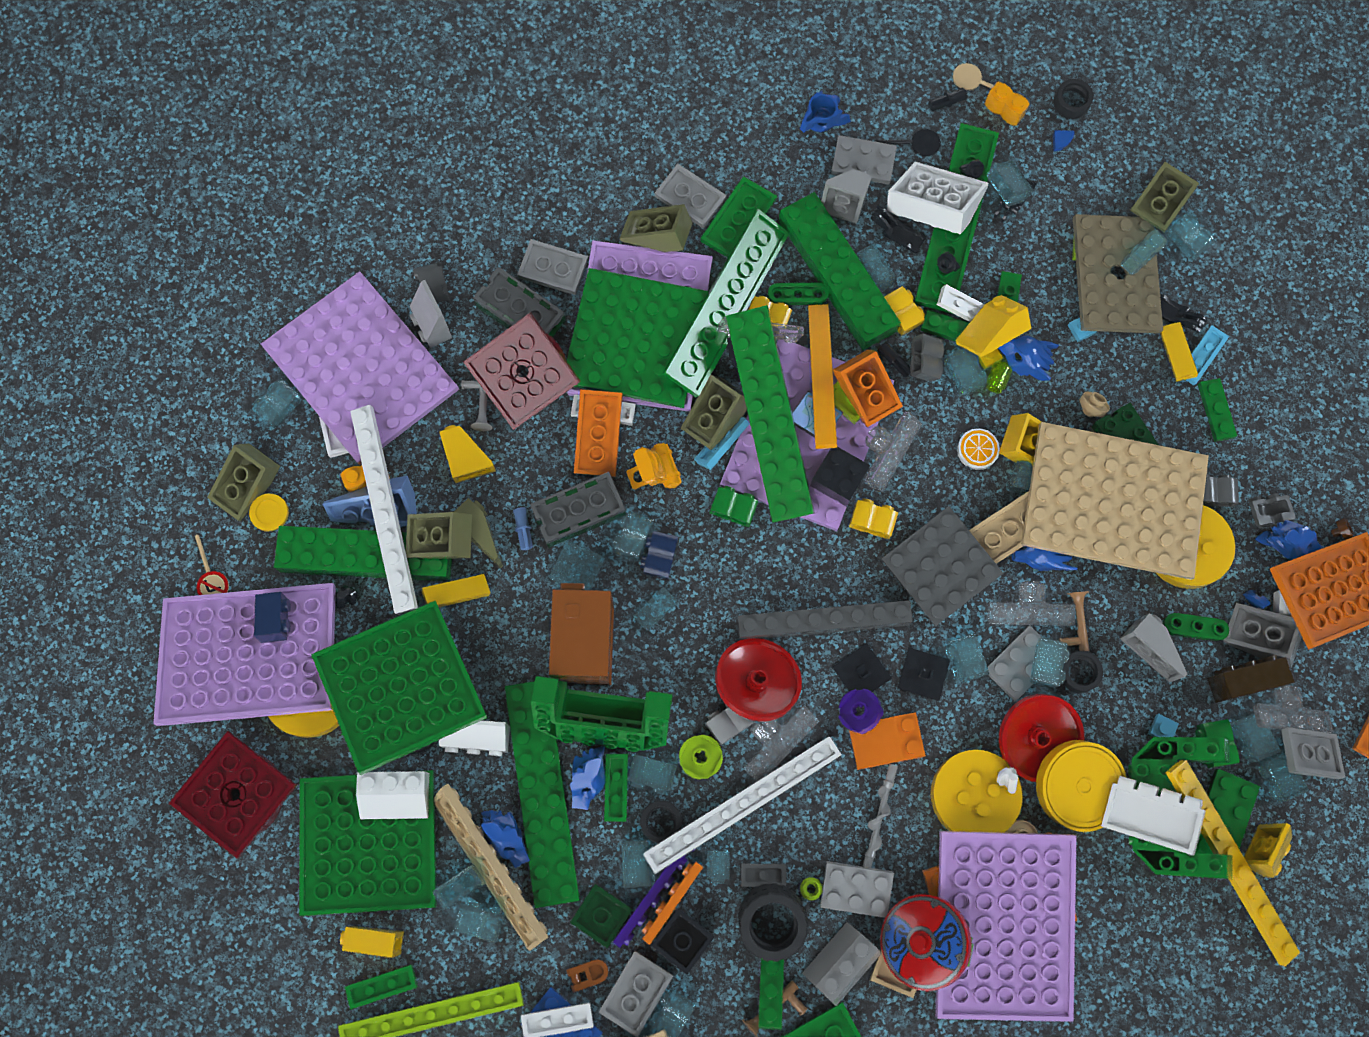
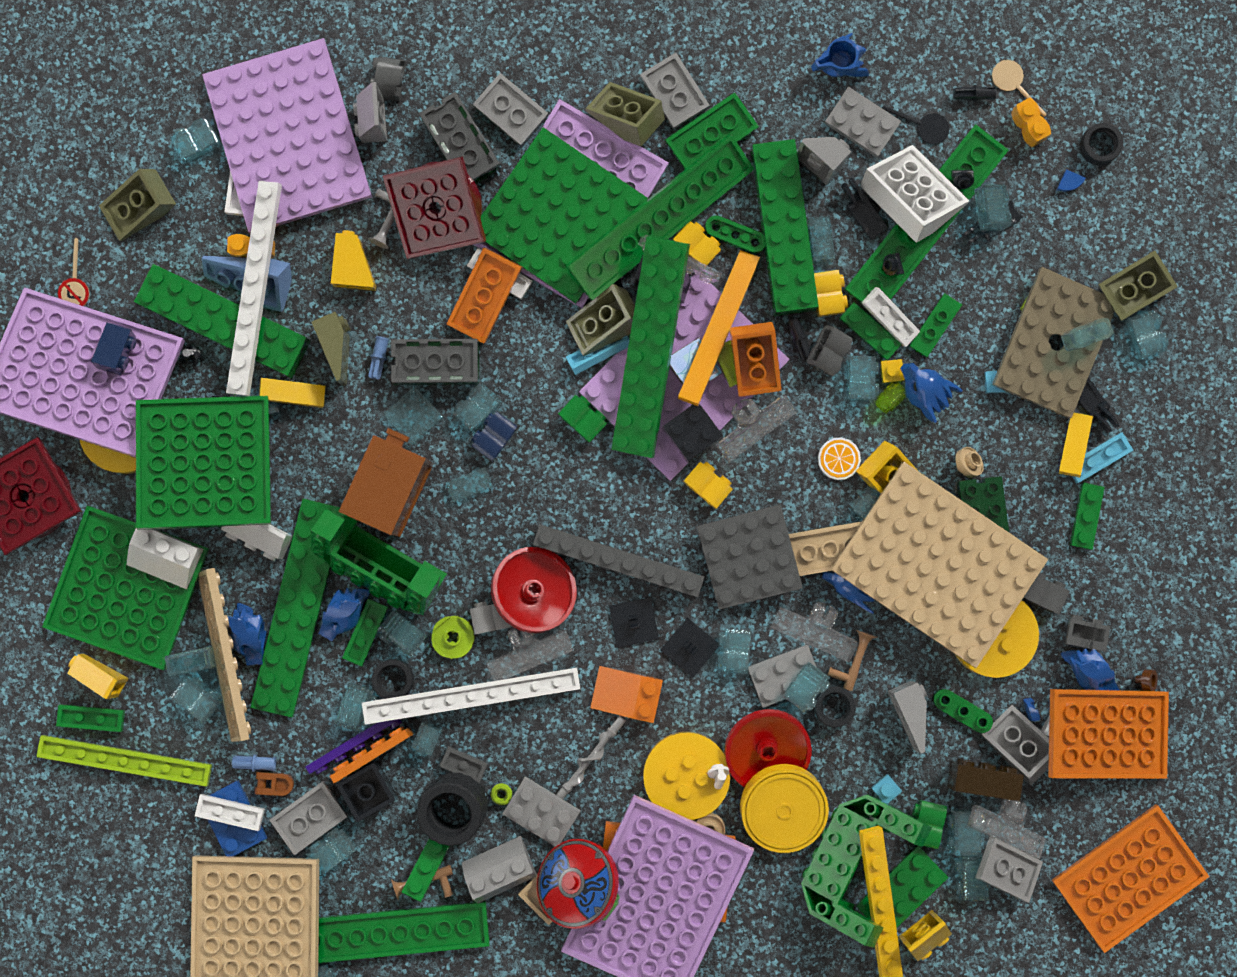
camera: 25 degrees right, 10 degrees up
(268, 512) = (150, 244): yellow piece -> none
(439, 535) = (293, 337): olive slope -> none
(560, 962) = (254, 763): none -> medium blue axle
(601, 916) = (305, 738): dark green plate -> none
(655, 467) = (524, 351): light orange piece -> none
(872, 712) = (624, 662): dark purple plate -> none
(995, 326) = (904, 349): yellow slope -> none
(1153, 817) = (829, 864): white hinge -> none

